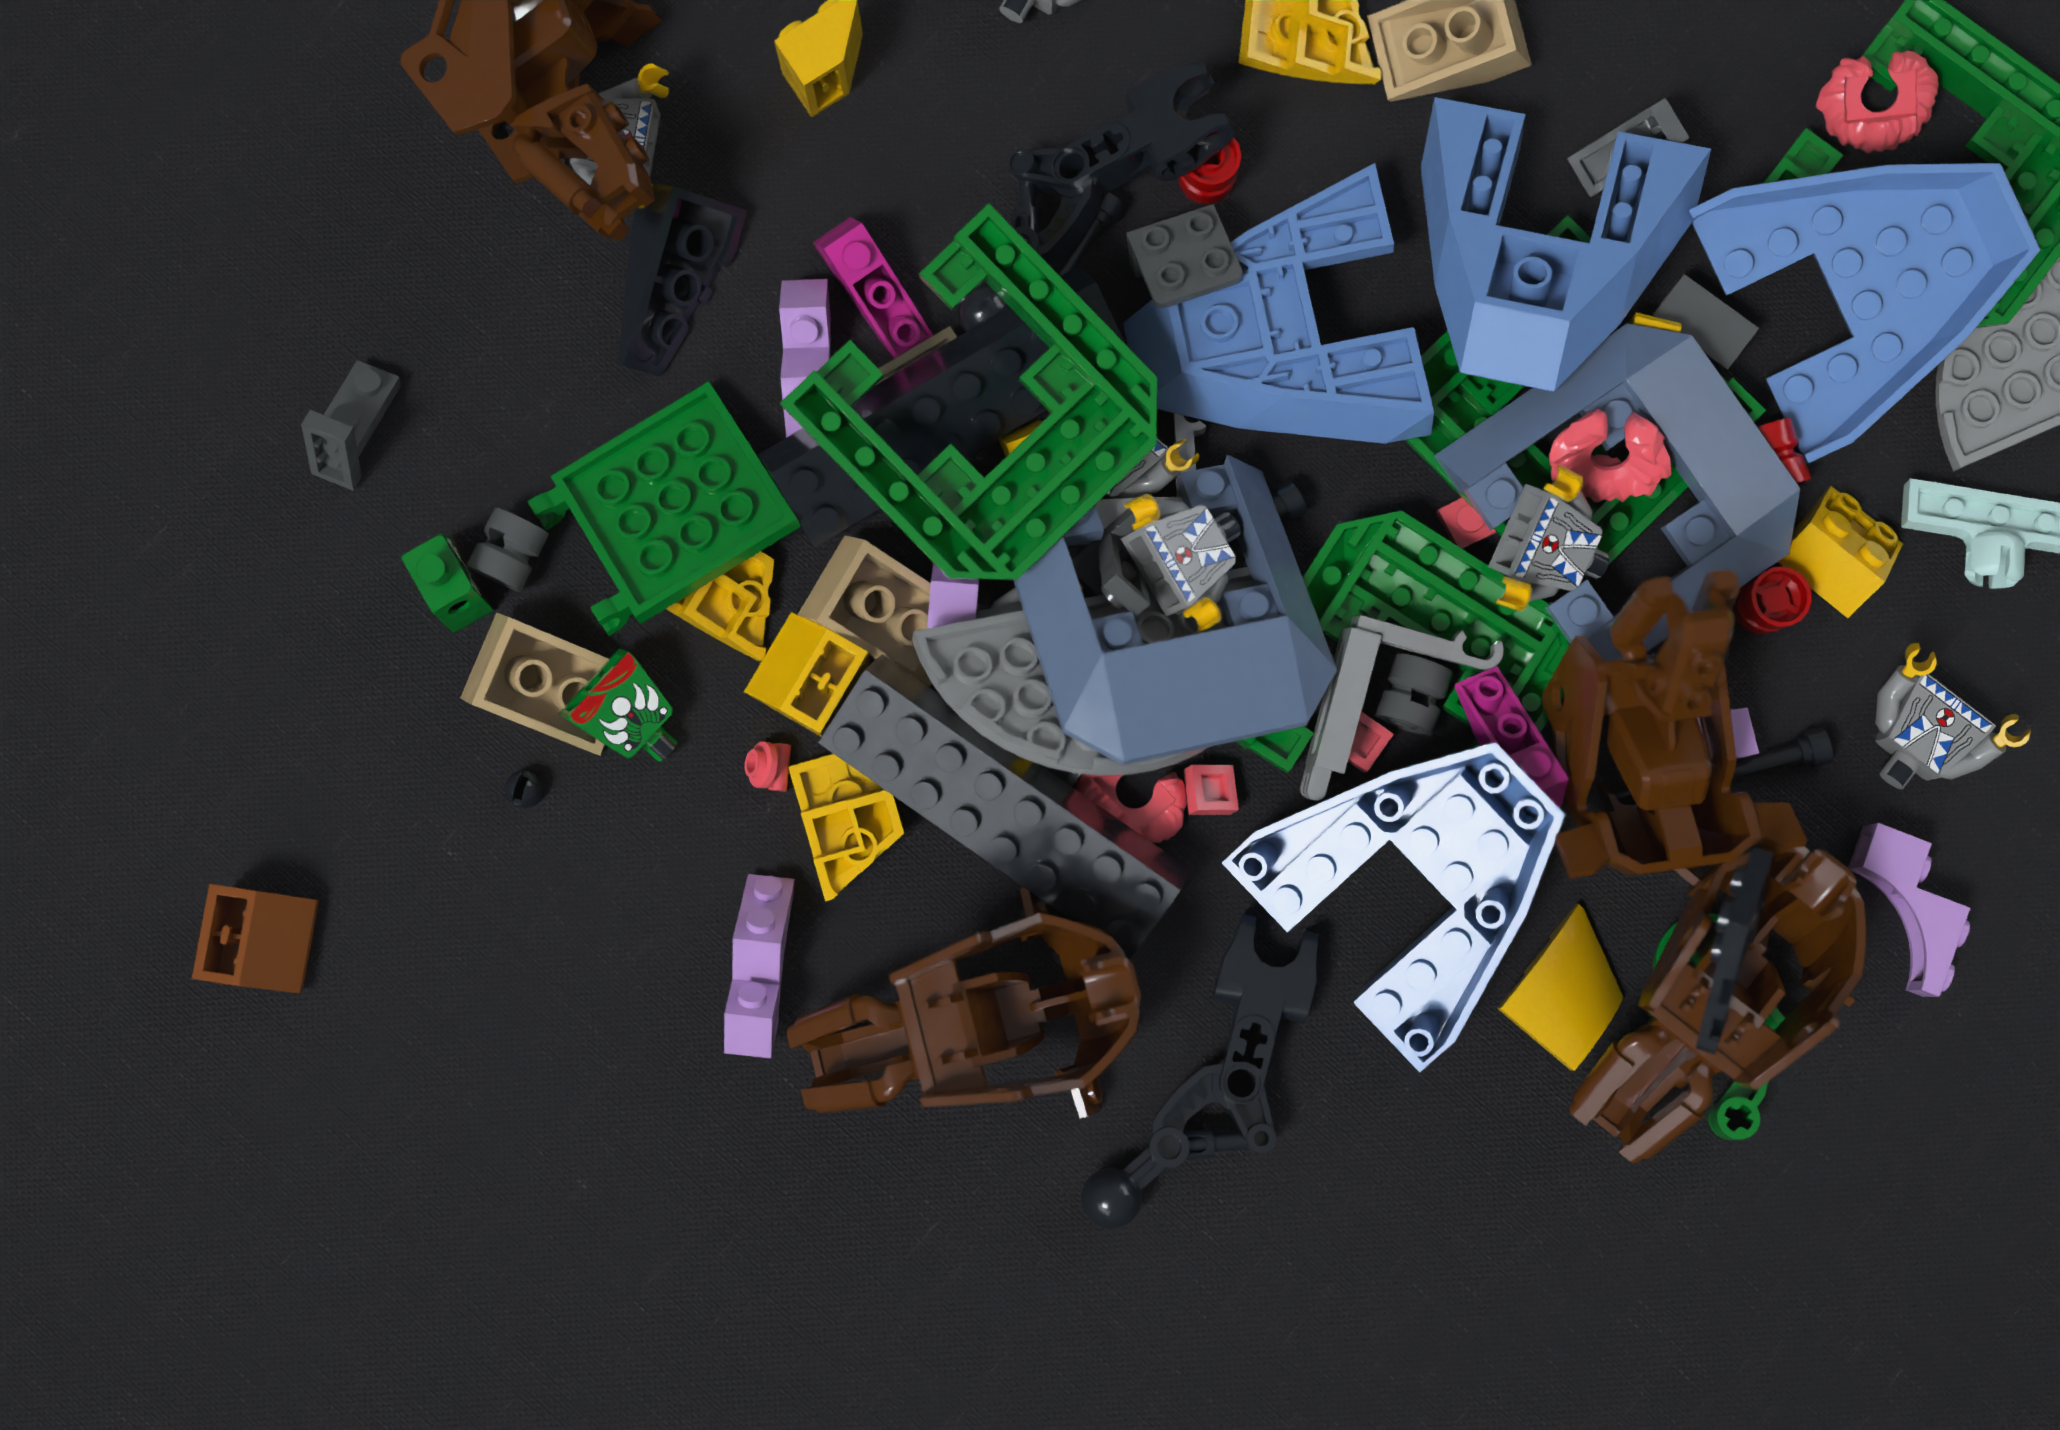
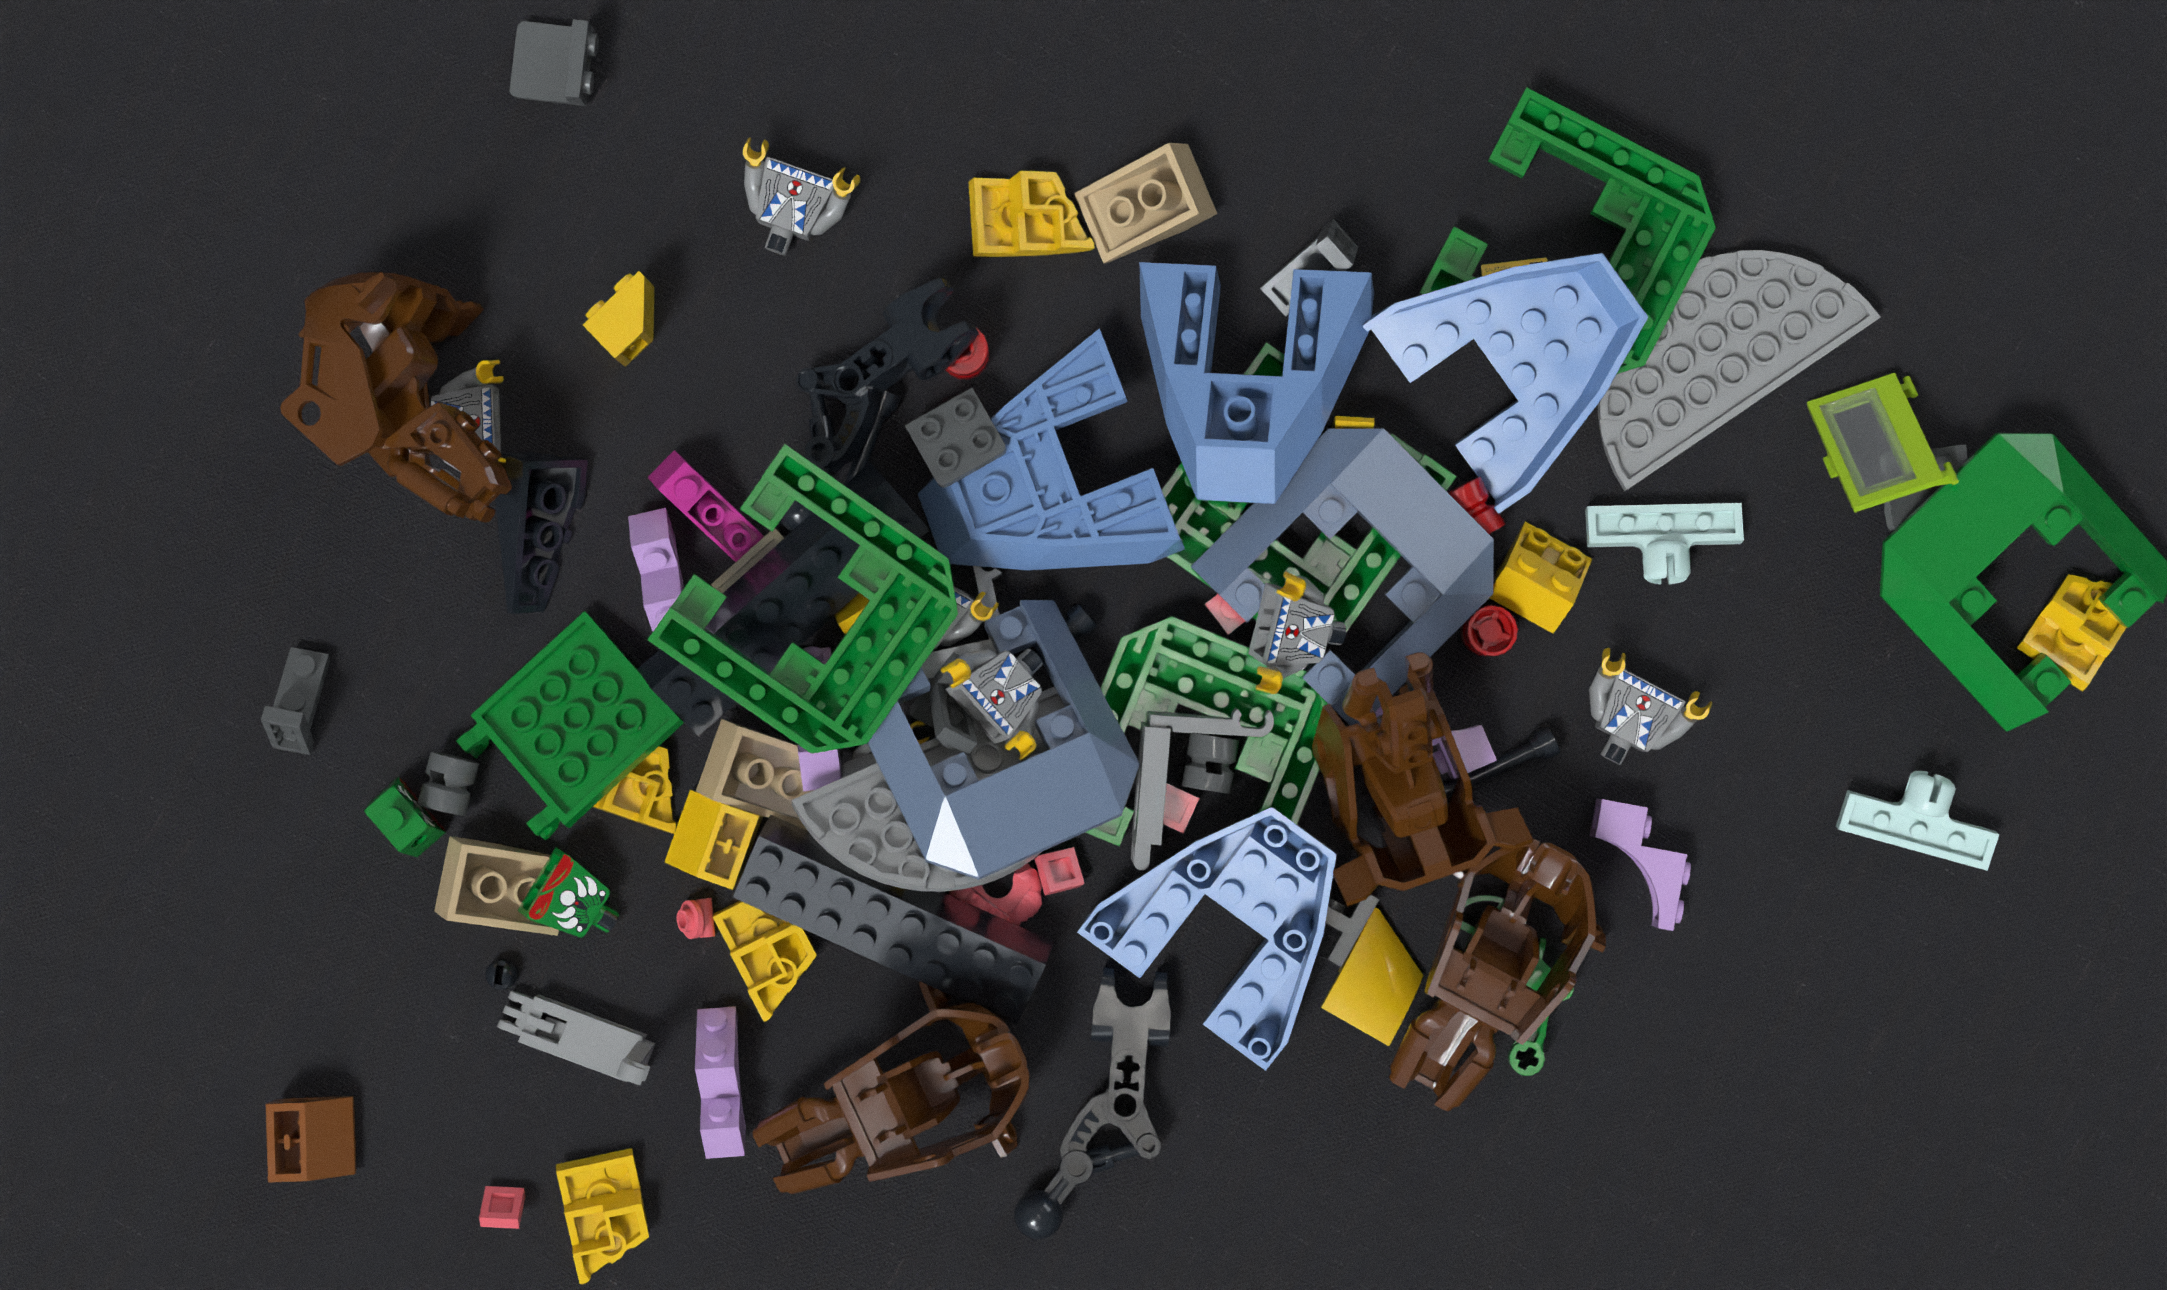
camera: 10 degrees left, 5 degrees up
(467, 1066) = (502, 1207): none -> coral plate
(586, 1092) = (602, 1209): none -> yellow slope
(603, 882) = (580, 1039): none -> light grey hinge
(1501, 719) = (1289, 789): dark pink slope -> none
(1547, 920) = (1349, 927): none -> dark grey bracket
(1607, 476) = (1329, 559): coral piece -> none
(1711, 322) = (1396, 407): dark grey hinge -> none
(1739, 923) = (1492, 904): black wing -> none
(1884, 129) = (1516, 213): coral piece -> none

